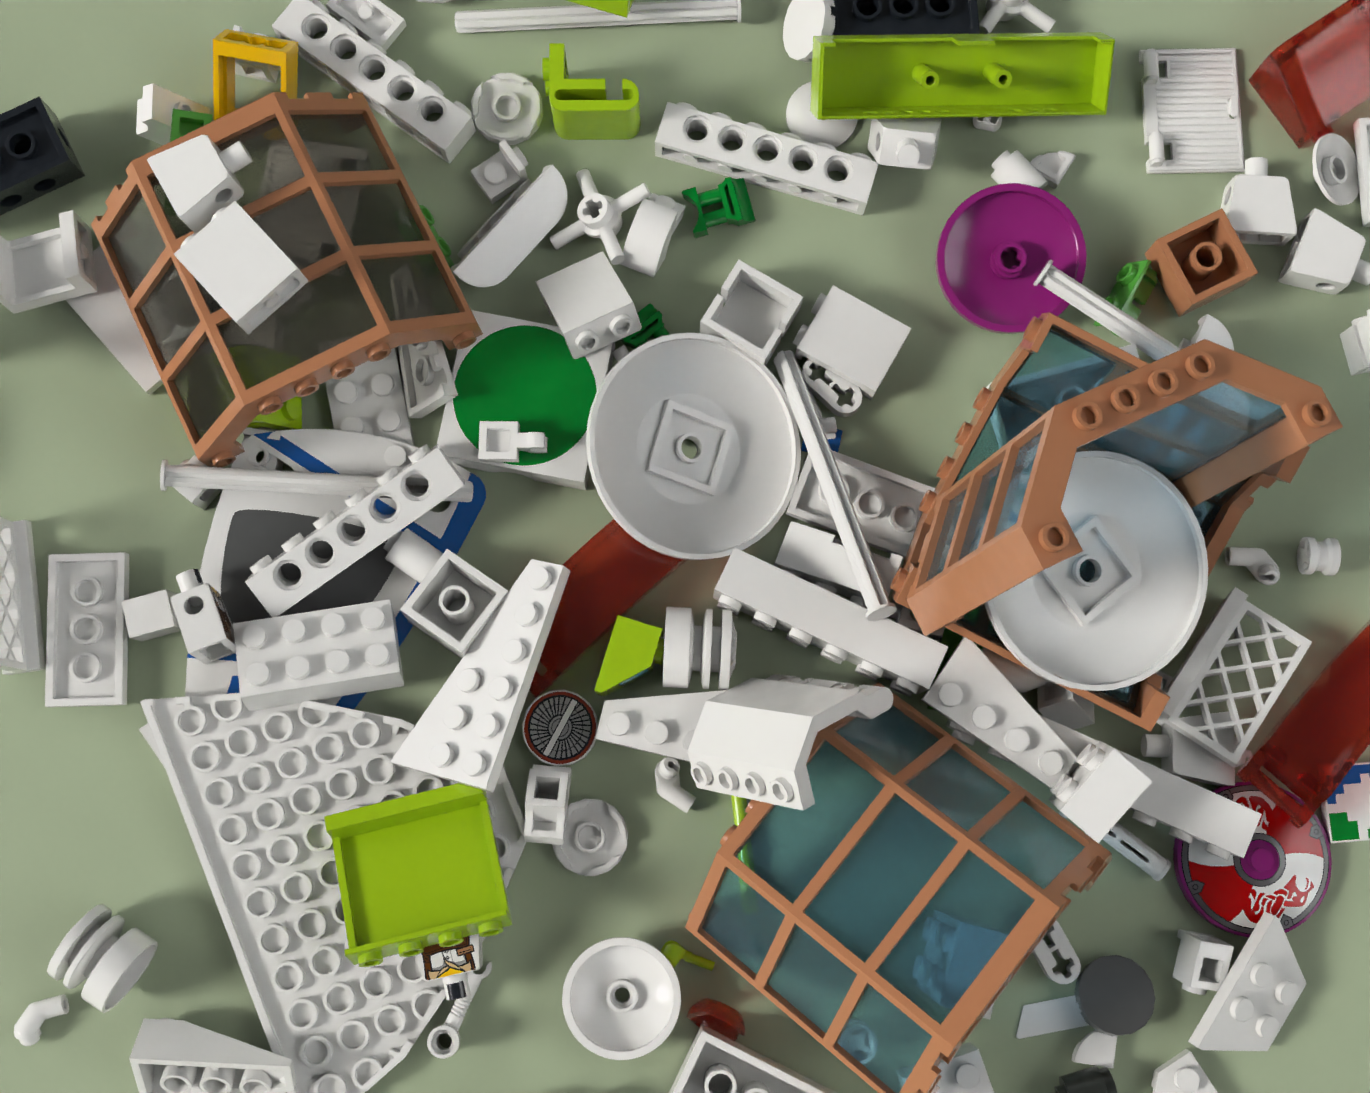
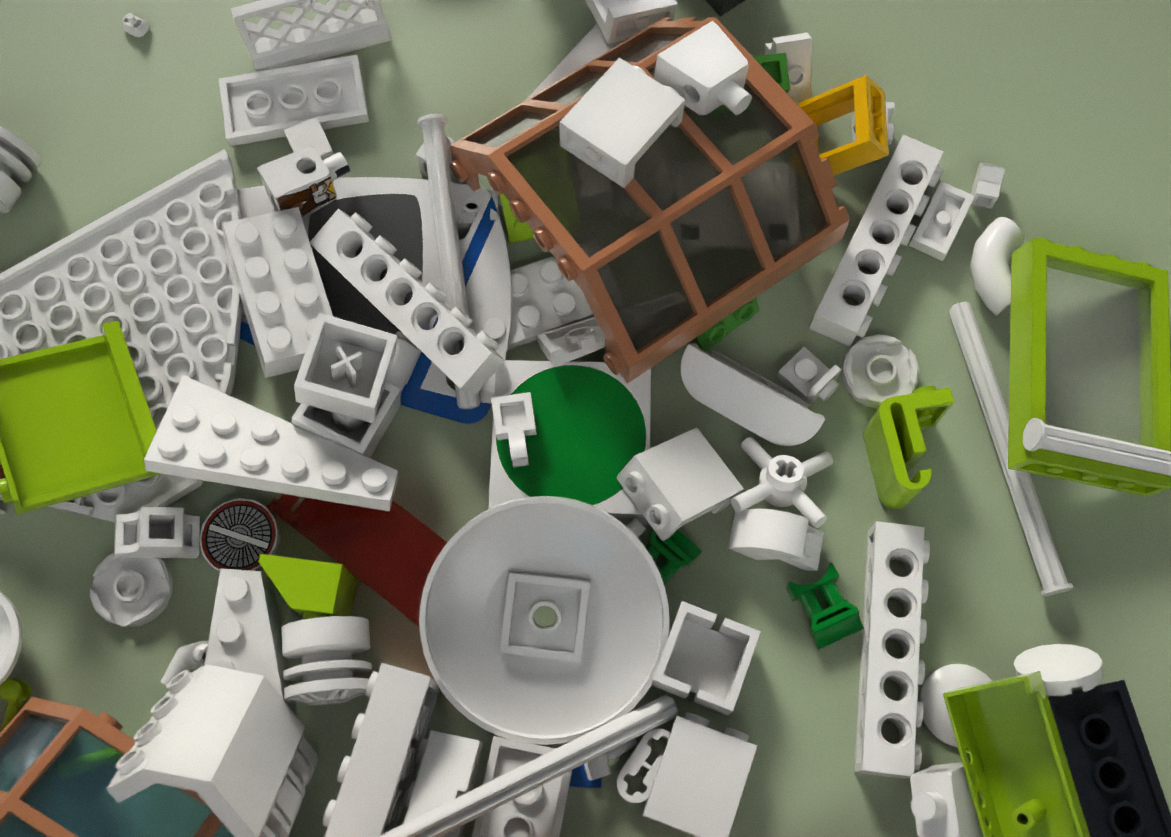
camera: 85 degrees right, 10 degrees down
(425, 588) = (345, 368): none -> white brick

